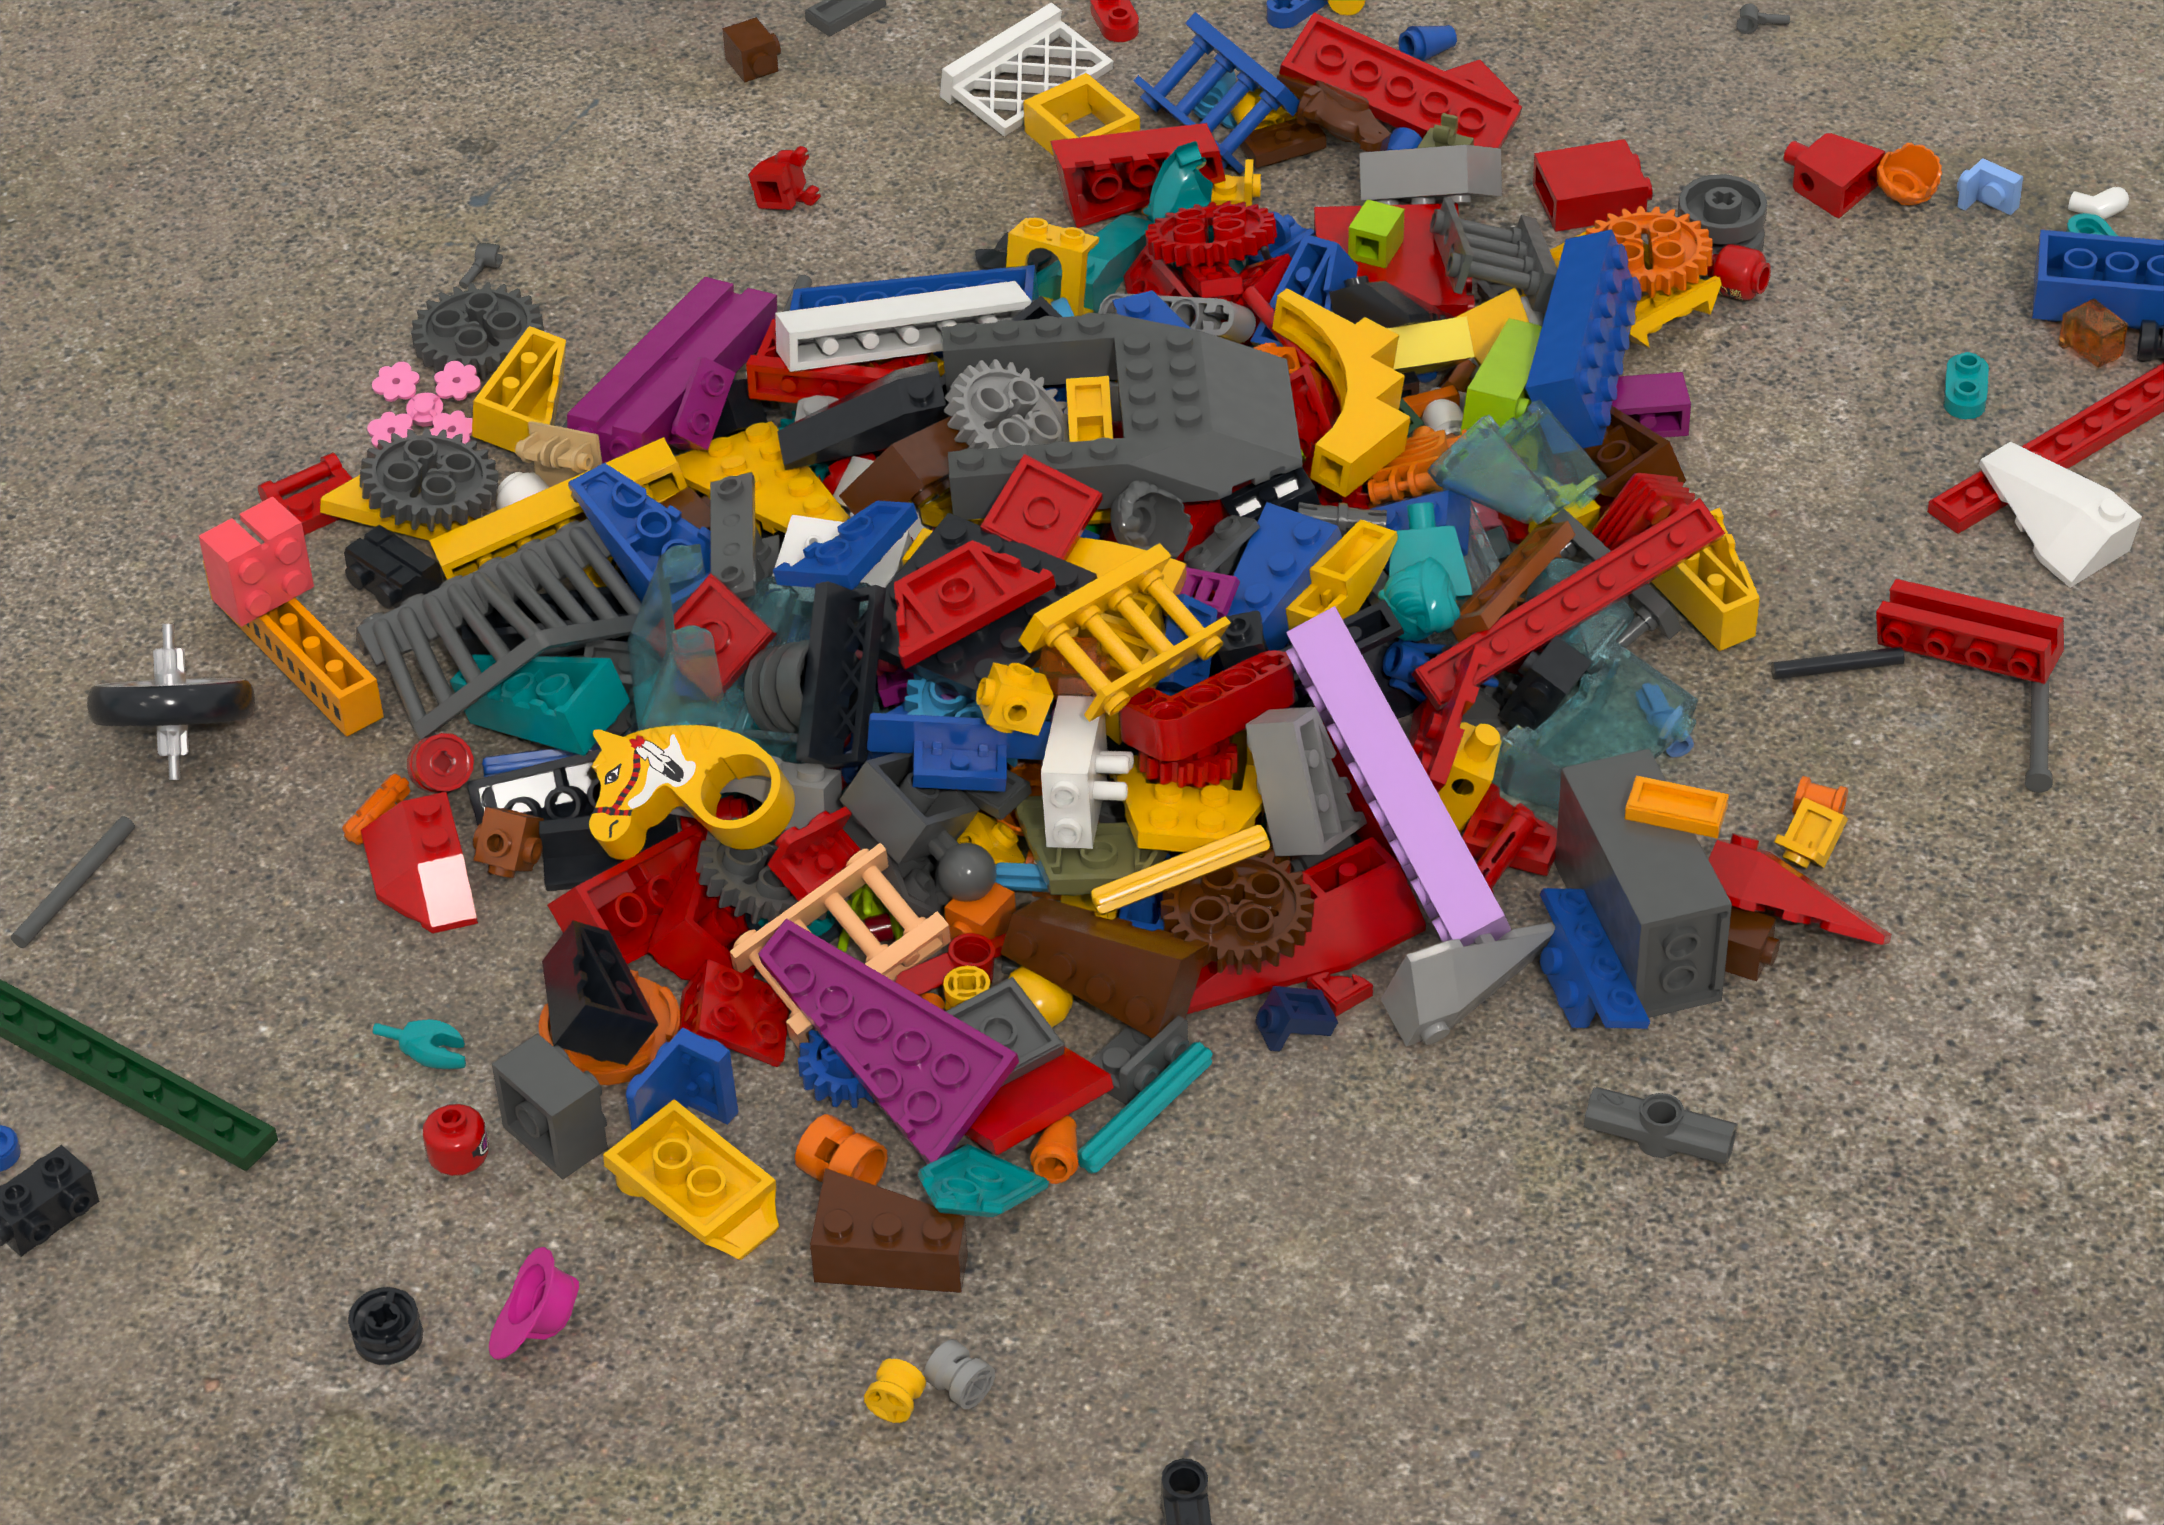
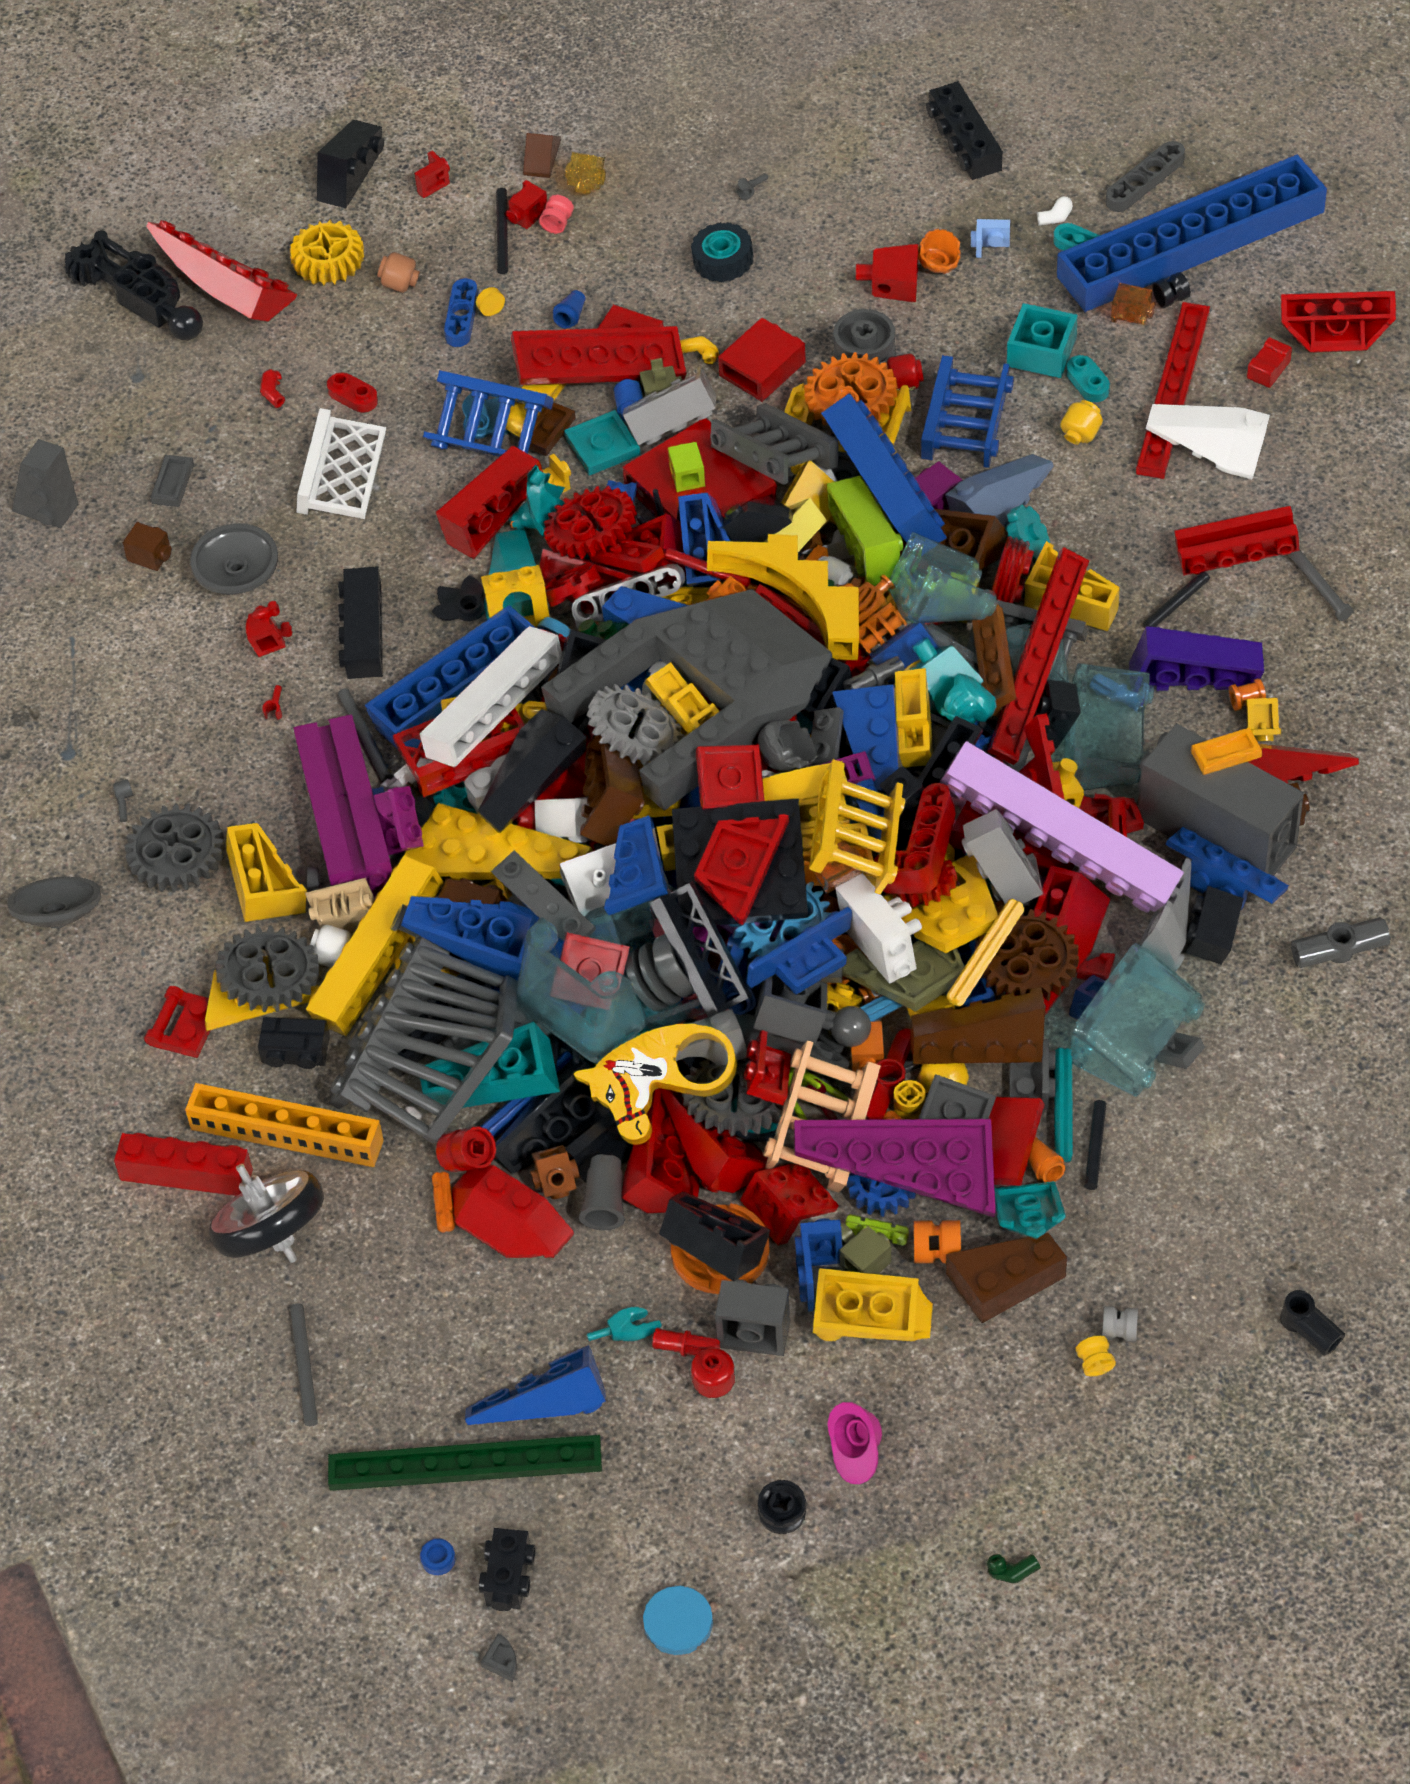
camera: 35 degrees left, 10 degrees up
(142, 603) = (181, 1163): none -> red brick
(157, 1371) = (677, 1620): none -> dark azure tile
(252, 576) = (244, 1098): coral piece -> none
(273, 1058) = (563, 1390): none -> blue wedge
(303, 315) = (54, 901): none -> dark grey dish
(423, 408) = (194, 919): bright pink plant -> none
(464, 1091) = (682, 1342): none -> red axle
(522, 901) = (602, 1198): none -> dark grey plant
(717, 258) = (273, 704): none -> red hand
(752, 1119) = (864, 1252): none -> olive brick
(788, 1102) = (898, 1234): none -> lime axle
(817, 98) = (234, 558): none -> dark grey dish
(889, 223) = (362, 622): none -> black brick
(1014, 698) = (829, 906): yellow brick -> none
(1054, 108) = (390, 499): yellow window -> none
(1129, 282) = (573, 583): none -> red plate
(1139, 1172) = (1095, 1145): none -> black bar
(1309, 1051) = (1133, 1020): none -> clear light blue windscreen
(1323, 181) = (602, 442): none -> teal tile
(1335, 1115) = (1181, 1050): none -> dark grey bracket
(1340, 112) = (581, 392): reddish brown animal -> none
(1517, 1015) = (1214, 924): none -> black brick
(1531, 137) = (701, 345): none -> yellow arm
(1655, 64) = (722, 252): none -> black wheel
(1717, 438) = (1000, 488): none -> sand blue wedge
(1719, 486) = (1026, 525): none -> teal plant
(1766, 316) = (944, 397): none -> blue fence
(1783, 725) = (1196, 659): none -> dark purple wedge
(1905, 421) = (1081, 422): none -> yellow head
(1938, 314) = (1042, 340): none -> teal brick
(2066, 73) = (964, 130): none -> black brick

